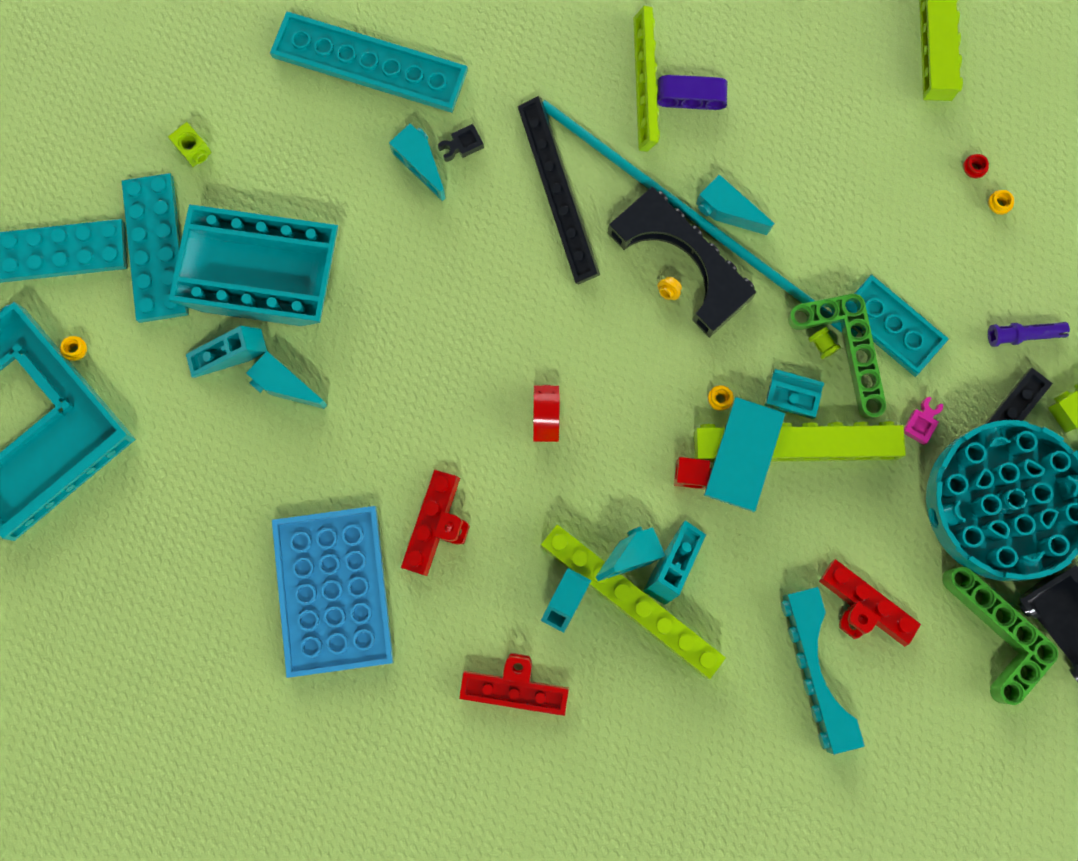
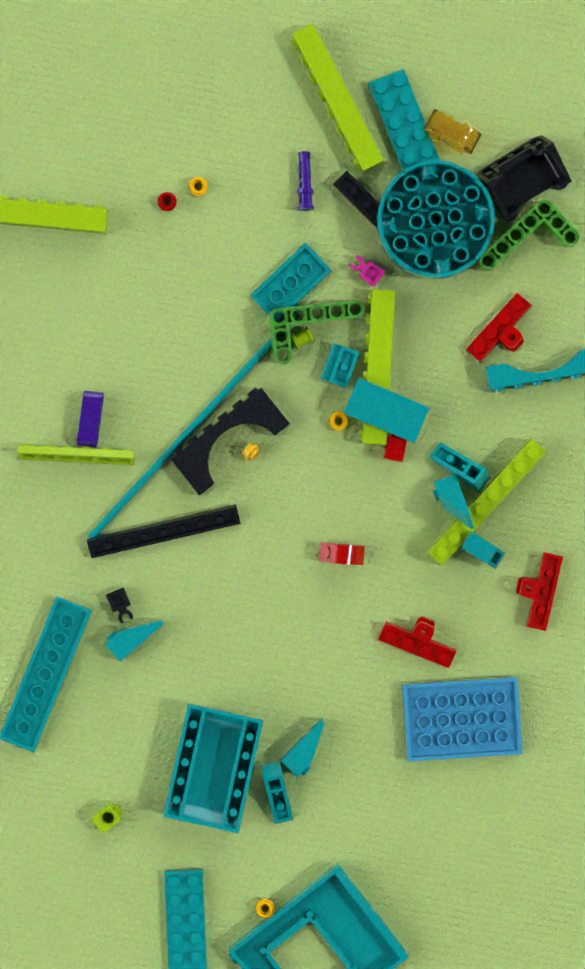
camera: 85 degrees left, 10 degrees up
(152, 245) = (185, 847): teal plate -> none
(729, 206) = (186, 401): teal slope -> none

